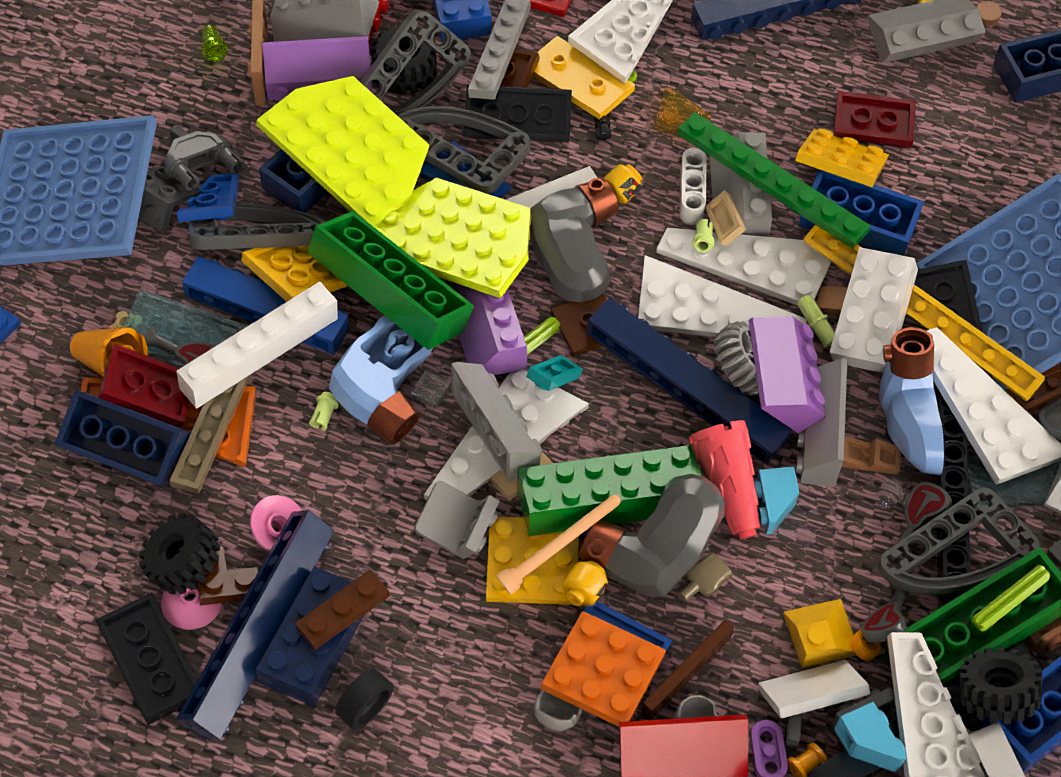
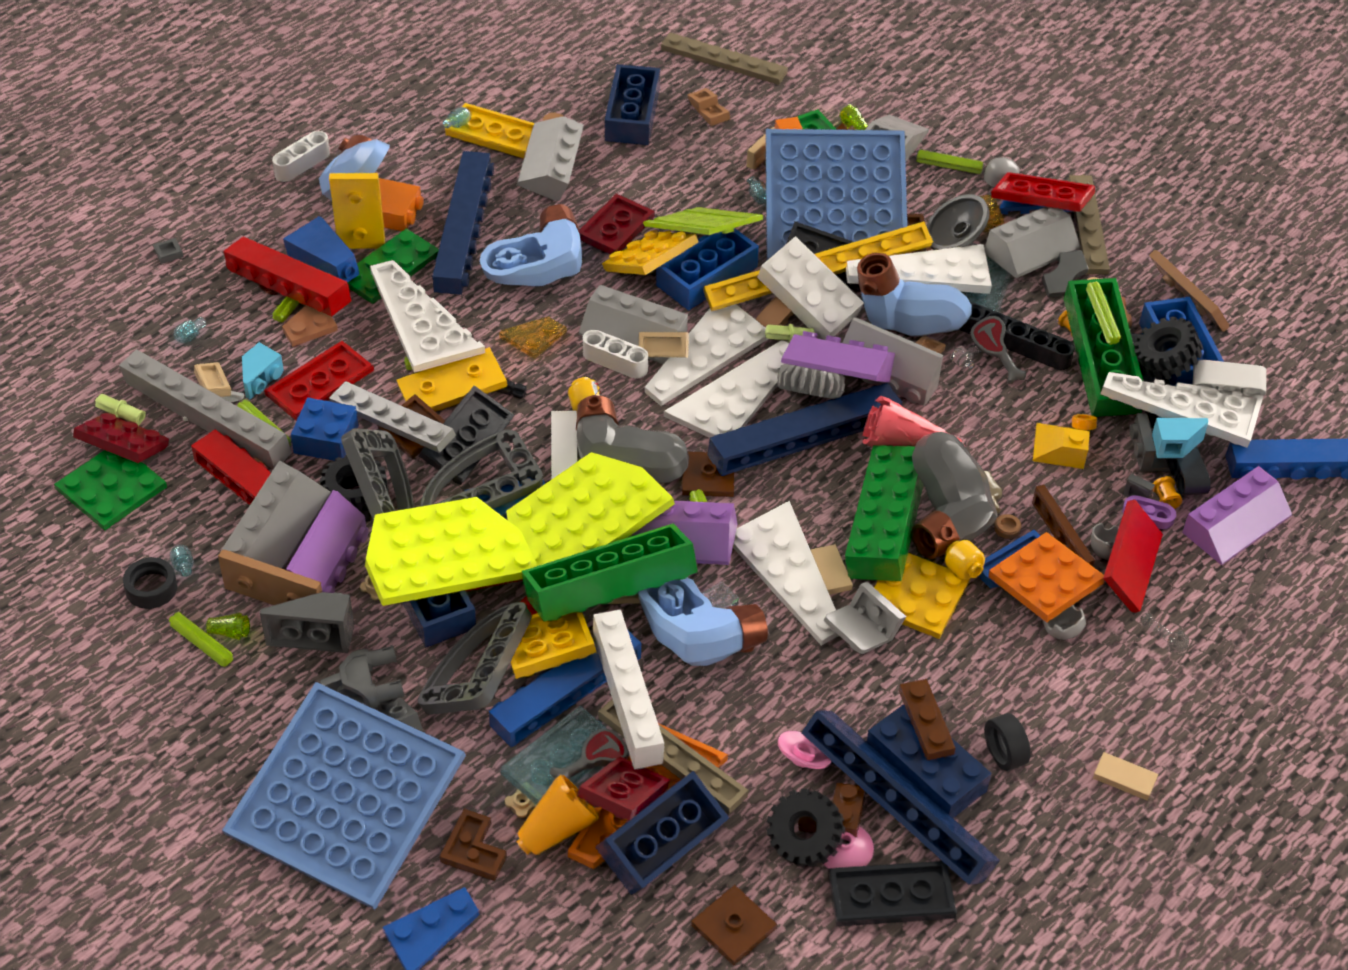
camera: 65 degrees left, 10 degrees down
(57, 303) = (467, 852): none -> reddish brown plate
(65, 539) = (734, 925): none -> reddish brown plate
(192, 32) = (201, 639): none -> lime axle
(215, 199) = (431, 676): blue wing -> none
(235, 94) = (310, 623): none -> dark grey slope
(323, 410) = (700, 681): yellowish green pin -> none
(494, 418) = (788, 559): light grey slope -> none
(513, 577) = (941, 603): light nougat piece -> none
(554, 373) = (754, 507): teal plate -> none
(671, 616) = (1007, 526): none -> medium nougat tile
(703, 240) = (678, 364): yellowish green pin -> none
(774, 180) = (653, 295): green plate -> none
(777, 495) = (940, 414): medium azure slope -> none
(779, 76) = (537, 257): none -> light blue piece
(814, 688) = (1112, 461): white tile -> none
(886, 619) = (1077, 398): dark grey piece -> none
(912, 182) = (703, 221): none -> lime door
(946, 585) = (1046, 298): dark grey beam -> none

